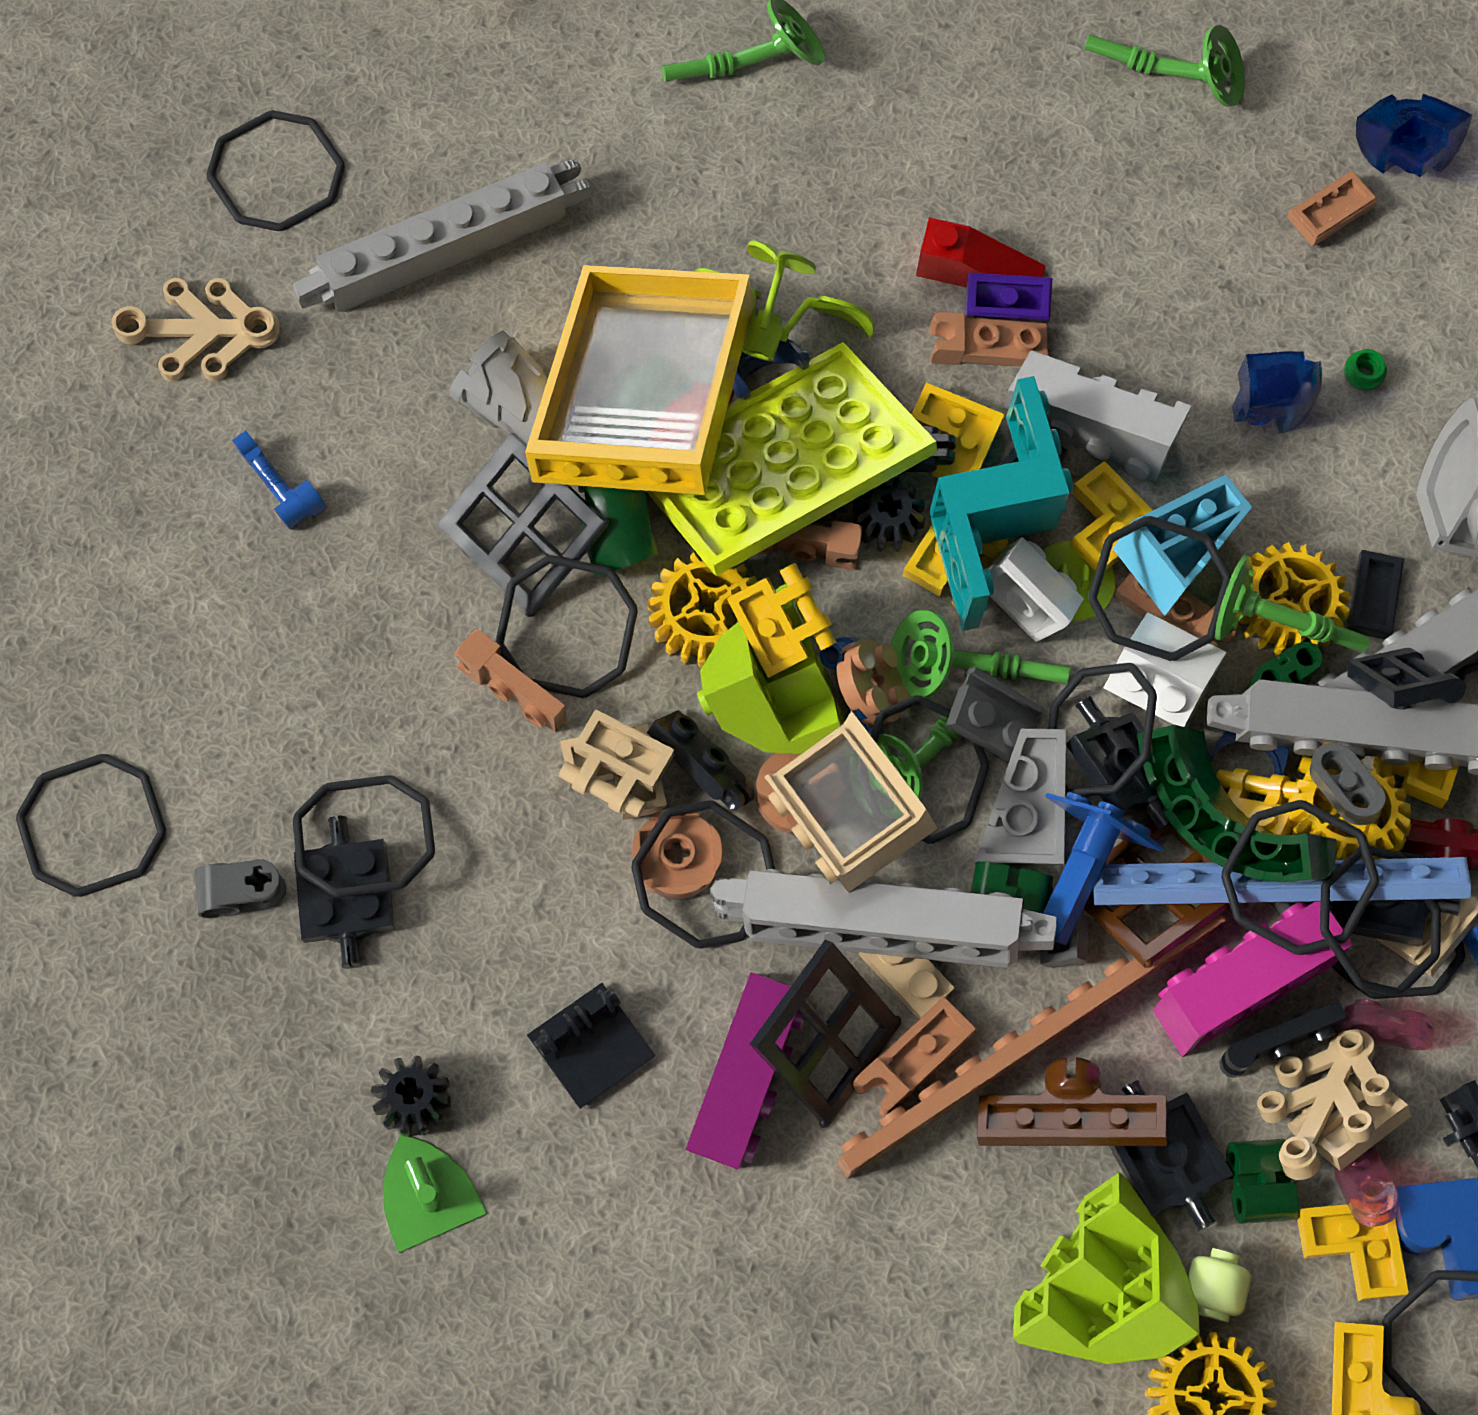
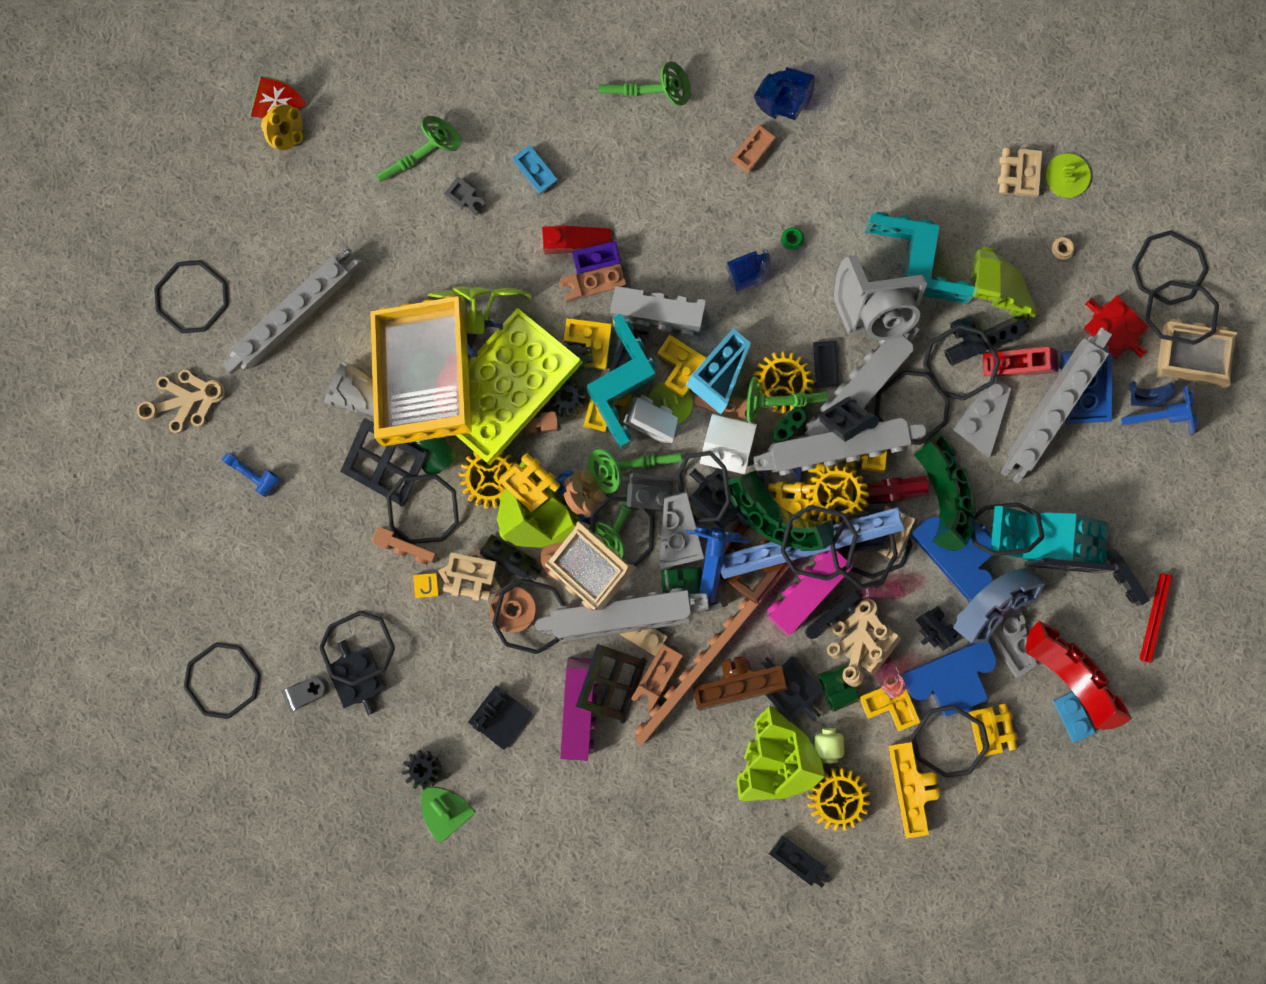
camera: 10 degrees left, 15 degrees up
(528, 765) = (426, 585): none -> yellow tile
(803, 139) = (462, 194): none -> dark grey plate
(939, 136) = (534, 170): none -> dark azure plate
(1170, 656) = (681, 414): black piece -> none
(1349, 786) = (832, 484): dark grey plate -> none

